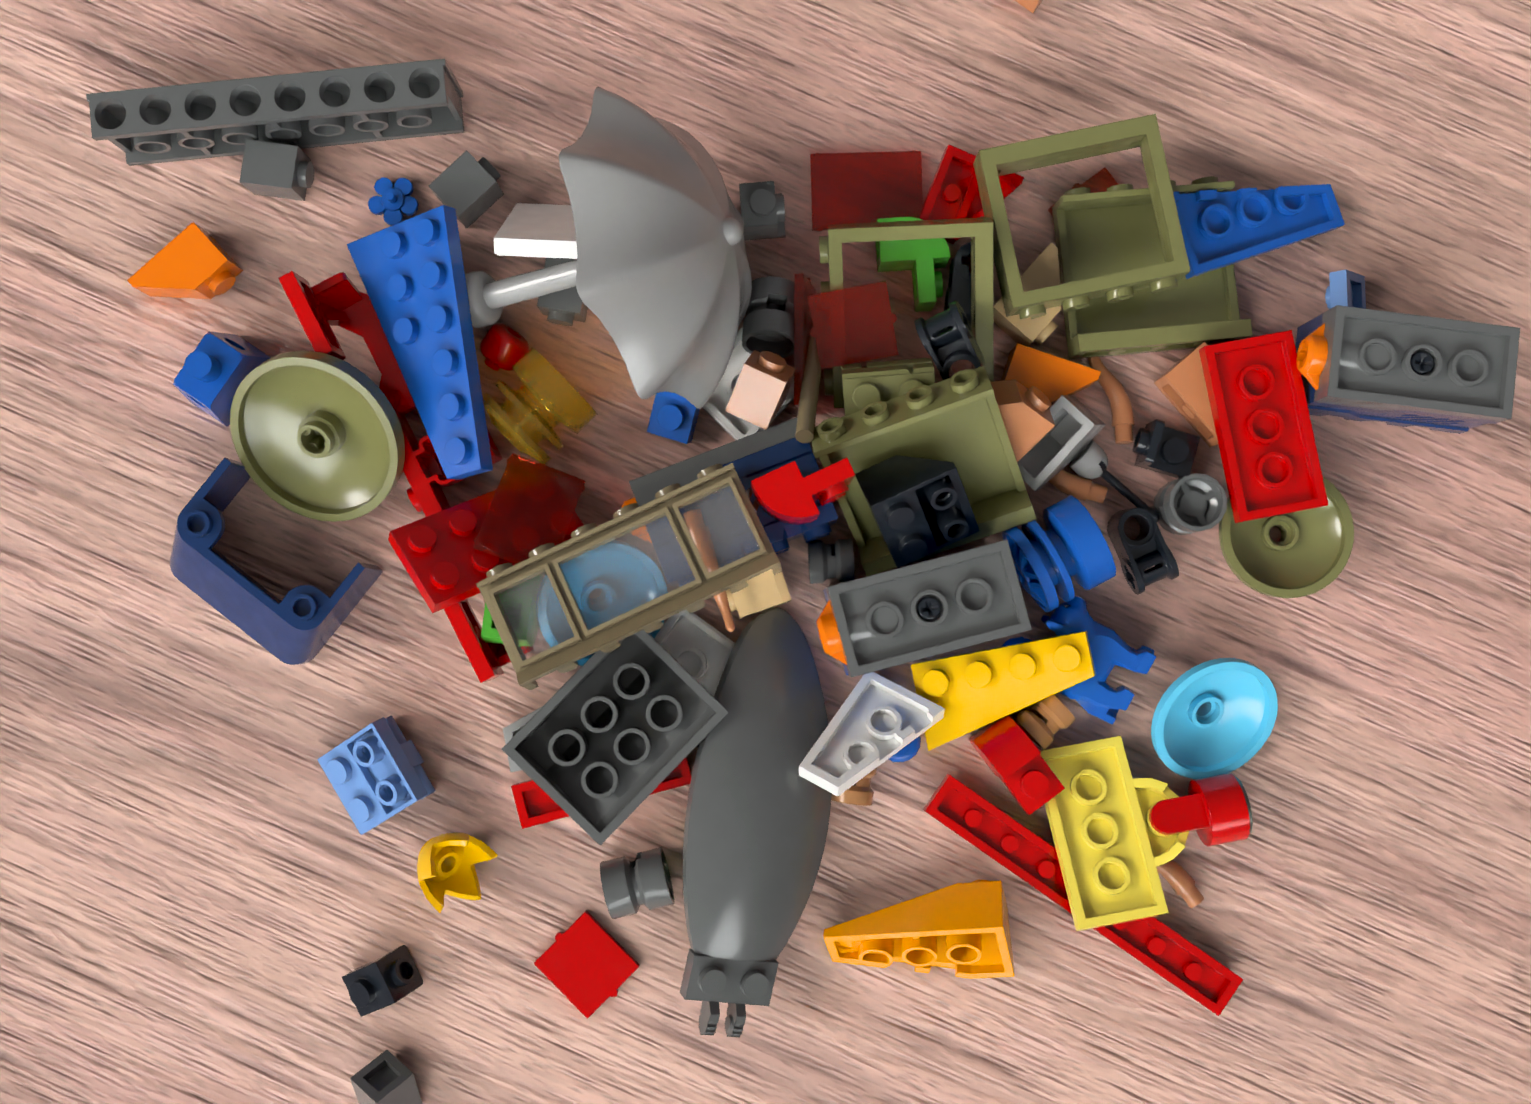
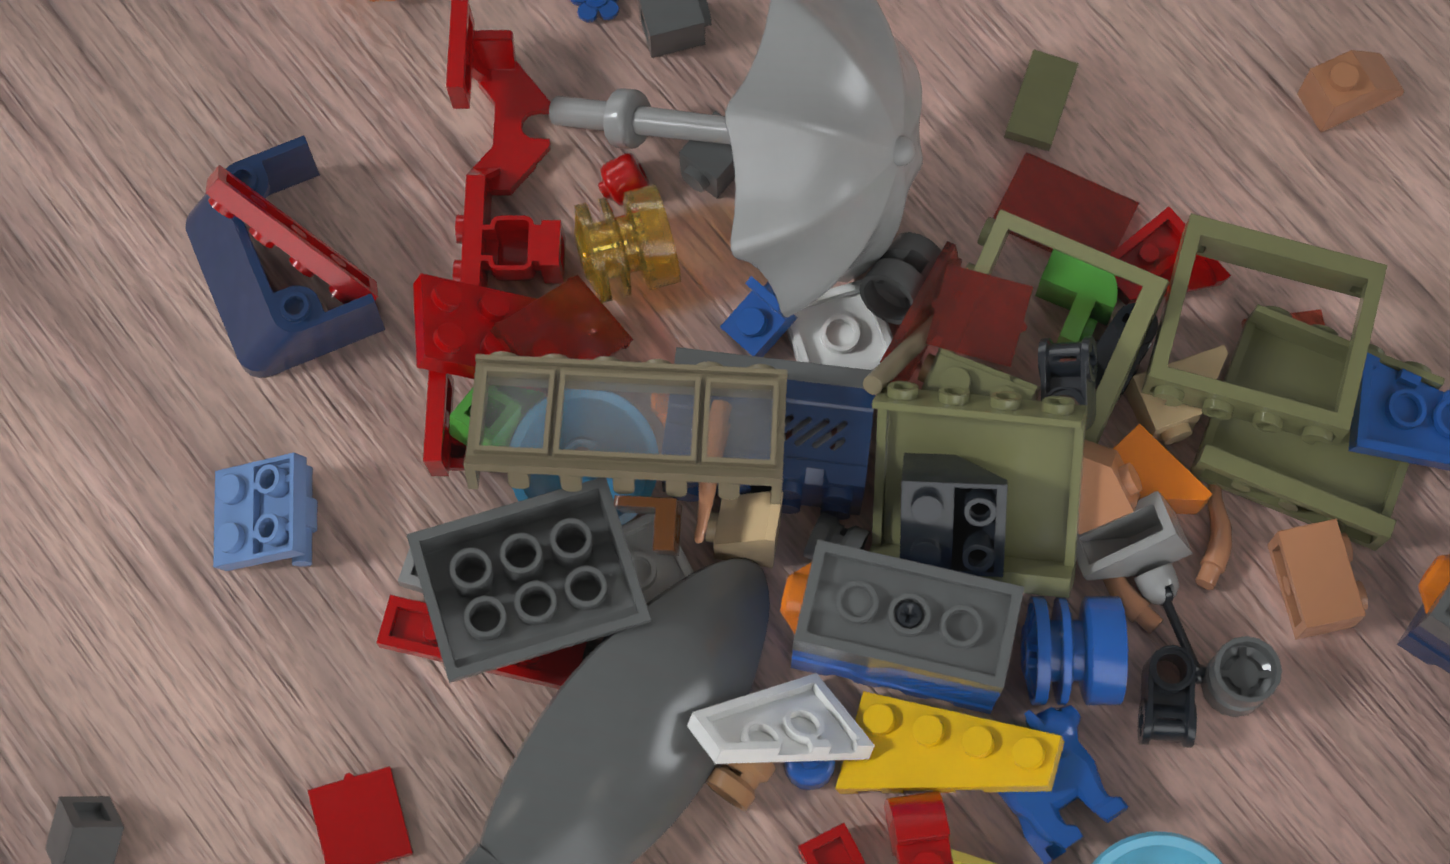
camera: 30 degrees right, 15 degrees down
(216, 371) = (341, 69): blue torso -> none
(251, 549) = (274, 227): none -> red plate
(317, 435) = (401, 164): olive dish -> none
(383, 981) = (147, 722): black bracket -> none
(424, 309) = (567, 103): blue wing -> none
(448, 867) = (285, 654): yellow piece -> none
(537, 232) = (707, 77): white tile -> none
(636, 883) = (454, 757): dark grey wheel -> none
(698, 628) = (666, 523): none -> reddish brown panel
(761, 388) = (856, 327): slope -> none
(762, 211) = (947, 178): dark grey brick -> none
(791, 497) = (831, 430): red brick -> none
(800, 102) = (1041, 100): none -> olive tile
(1052, 712) = (975, 819): medium nougat wheel -> none
(1165, 449) = (1243, 610): black bracket -> none
(1263, 426) = (1354, 630): red plate -> none
(1306, 557) = (1357, 736): olive dish -> none

